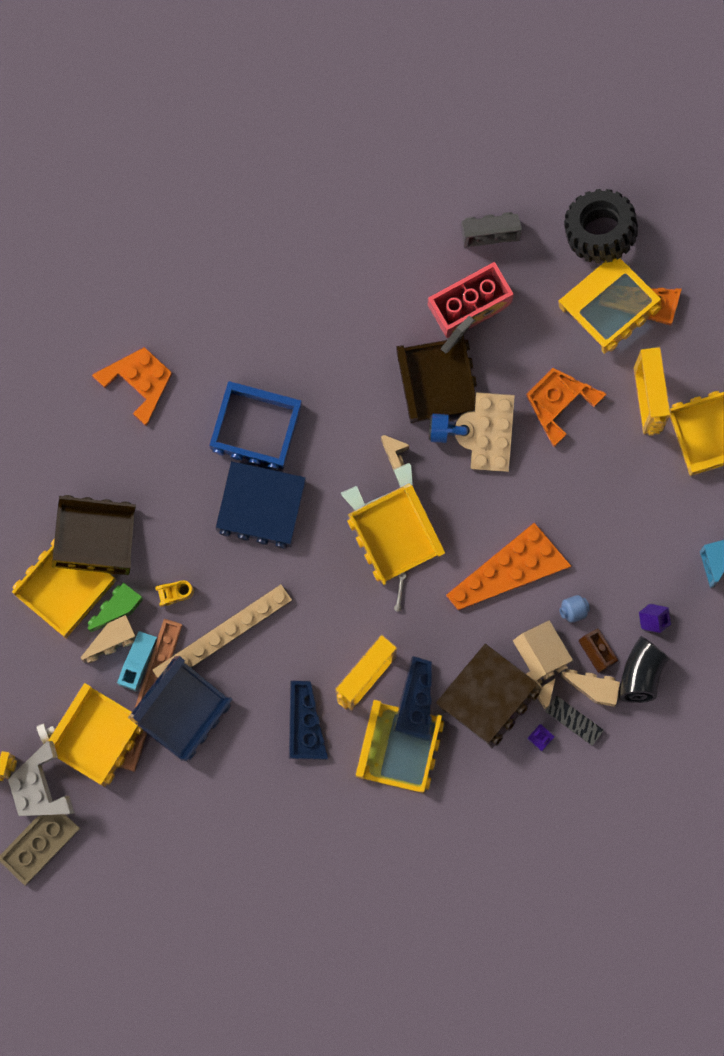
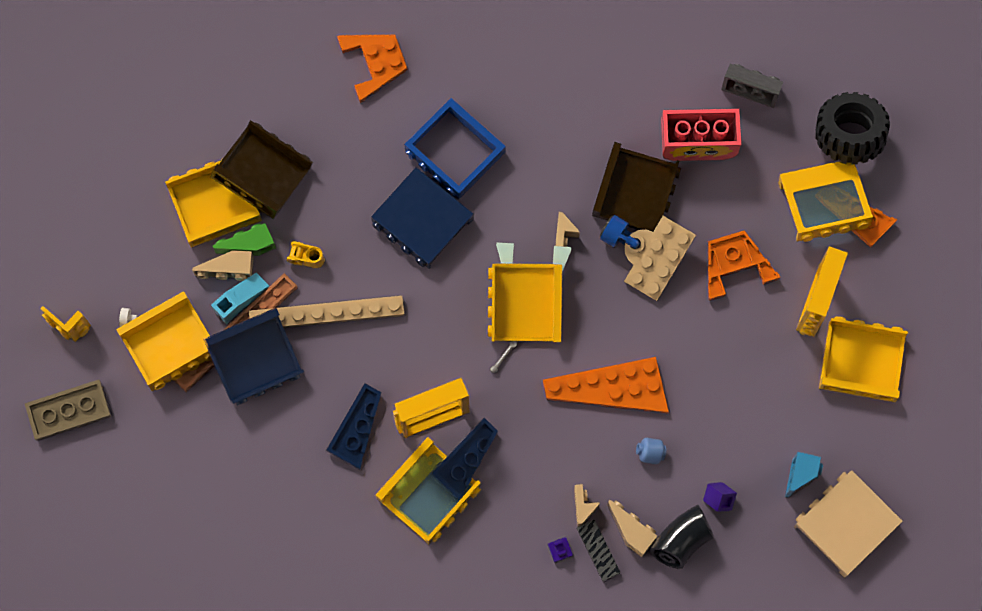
camera: 25 degrees right, 5 degrees down
(31, 788) = (88, 356): light grey wing -> none
(457, 334) = (673, 156): dark grey tile -> none
(489, 695) = (532, 487): dark brown panel -> none
(543, 651) = (602, 472): tan brick -> none
(598, 650) = (653, 499): reddish brown slope -> none

